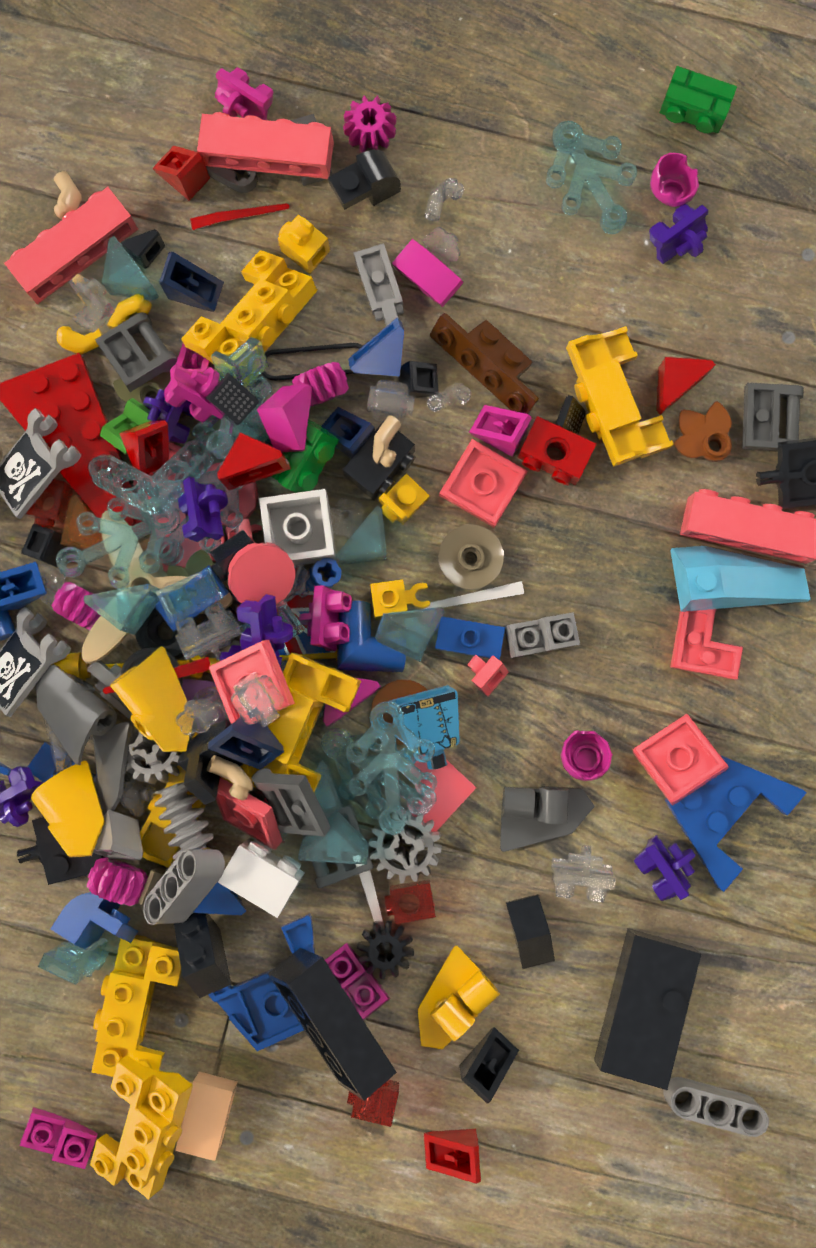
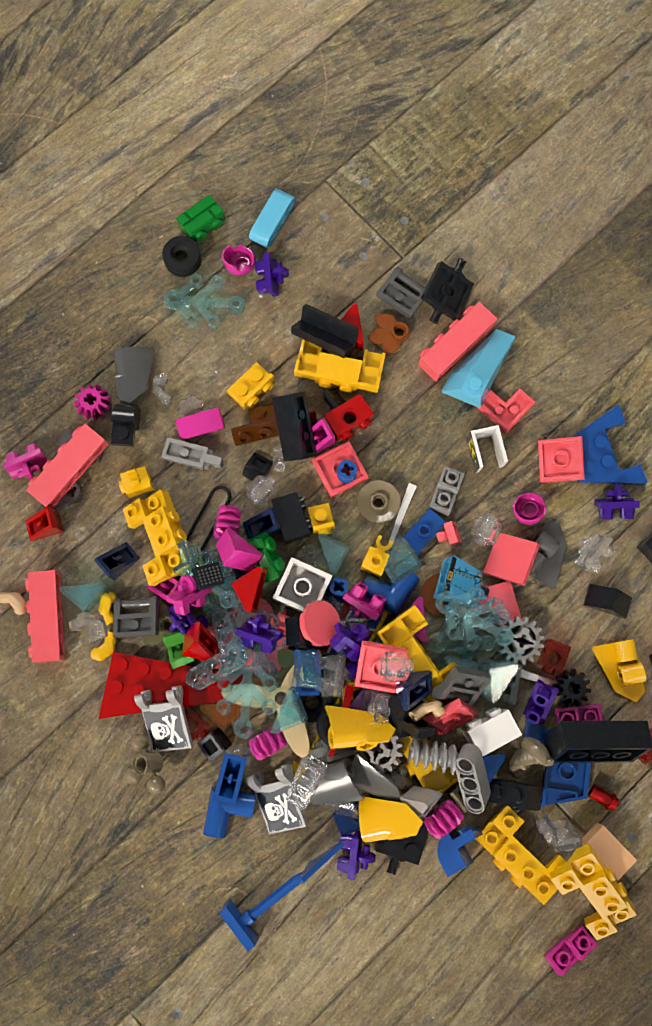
camera: 65 degrees left, 5 degrees down
(74, 962) = (476, 875): clear light blue bracket -> none
(75, 683) = (312, 768): none -> clear slope
(144, 247) = (77, 574): black slope -> none
(187, 1039) = (558, 833): none -> clear bracket
(213, 218) = (85, 522): red sticker -> none
(260, 946) = (529, 758): none -> dark tan hair
(271, 1072) = (609, 800): none -> red pin
(339, 919) = (540, 702): none -> dark purple hips
(382, 353) = (230, 477): blue slope -> none
(382, 439) = (284, 507): tan arm -> none
(439, 147) = (132, 371): none -> dark grey panel
(480, 481) = (350, 467): none -> blue bush
(497, 388) = (294, 426): none -> black panel
(504, 772) = (511, 559): none -> coral tile
(518, 305) = (251, 386): none -> yellow bracket
(521, 717) = (486, 530): none -> clear head
(635, 91) = (177, 245): none -> black tyre
(648, 635) = (495, 434): none -> white piece
(650, 350) = (326, 331): none -> black panel
(760, 187) = (272, 218): none -> medium azure beam

